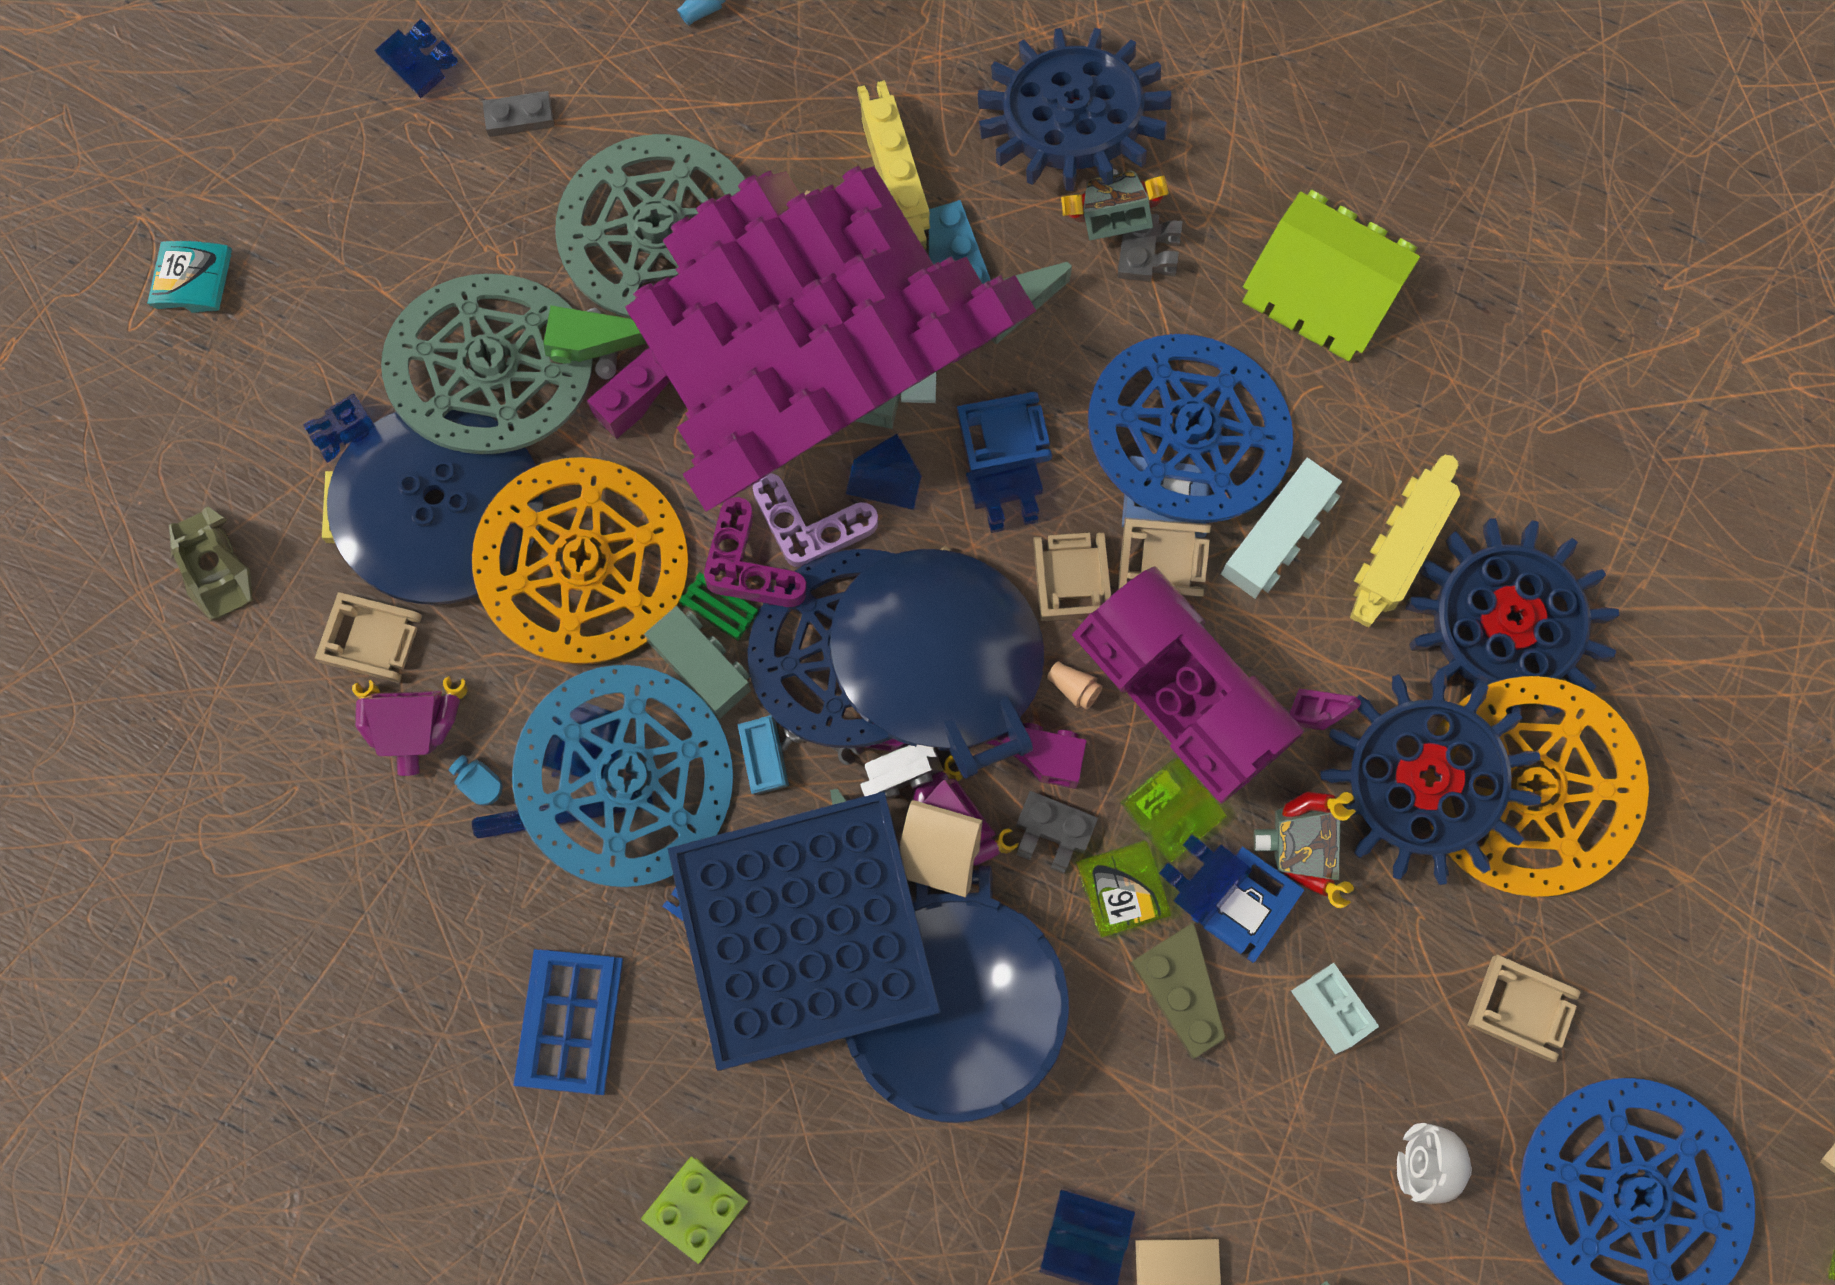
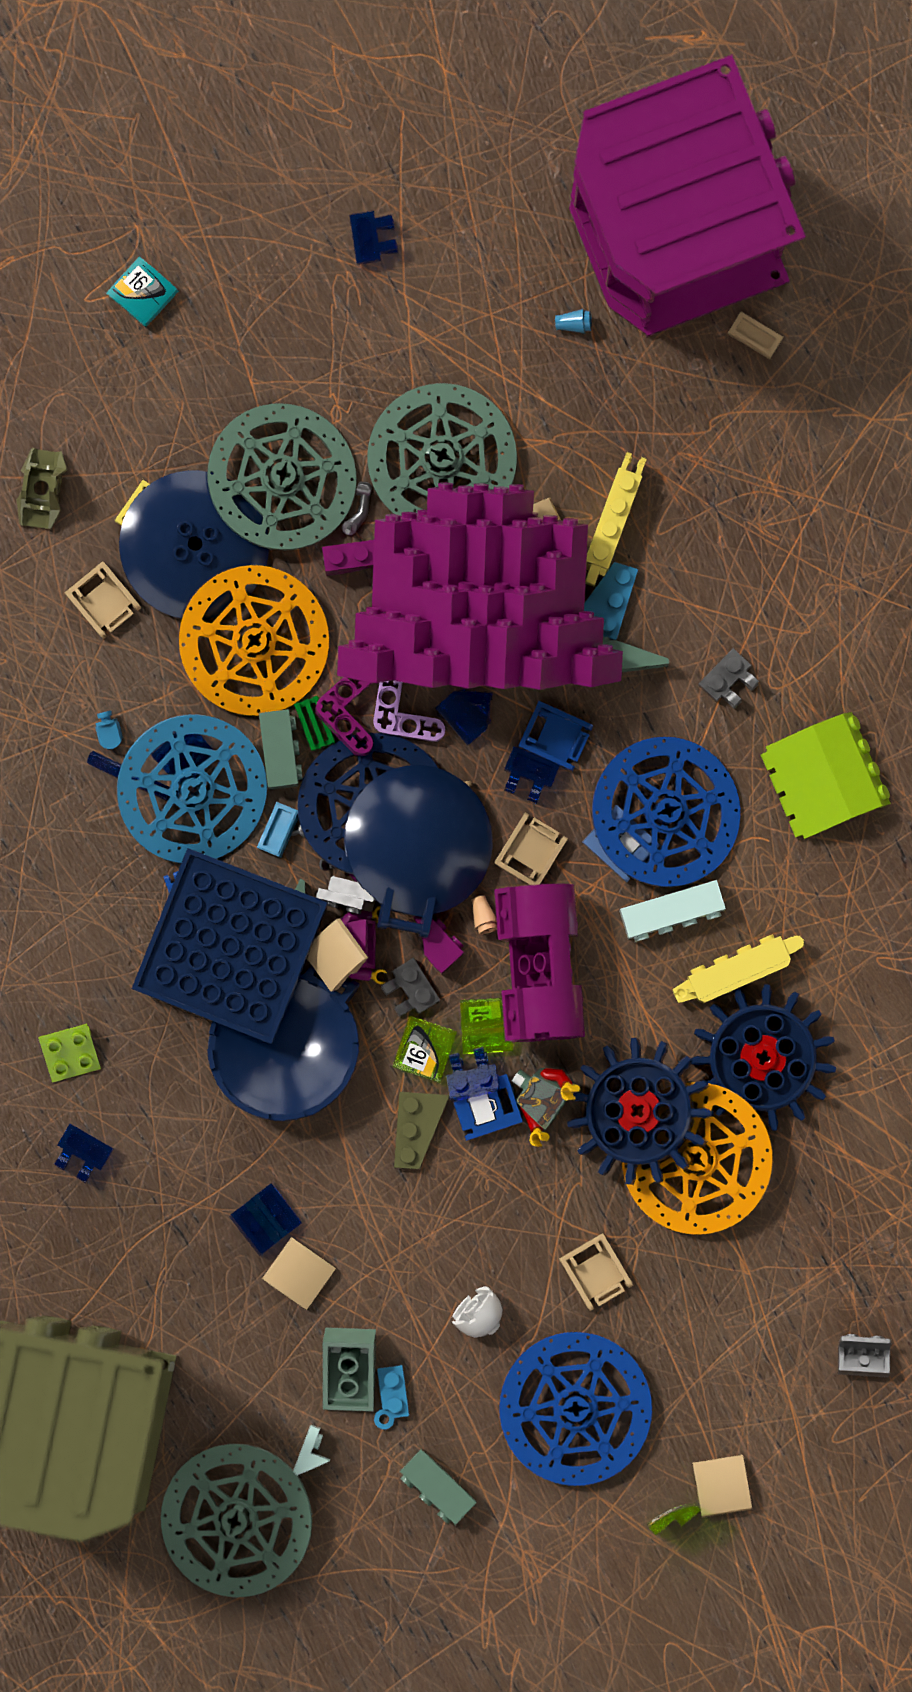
camera: 35 degrees right, 10 degrees up
(342, 423) = (176, 460): clear blue plate -> none
(406, 721) = (91, 669): magenta torso -> none
(518, 113) = (410, 318): flat silver plate -> none
(568, 1022) = (69, 903): blue piece -> none
(587, 335) = (348, 502): bright green slope -> none
(1074, 108) = (769, 529): dark blue gear -> none
(1117, 206) = (724, 640): torso -> none
(1171, 549) = (594, 880): tan container -> none
(1321, 709) = (610, 1029): magenta tile -> none
(1335, 1008) = (490, 1196): light aqua hinge -> none

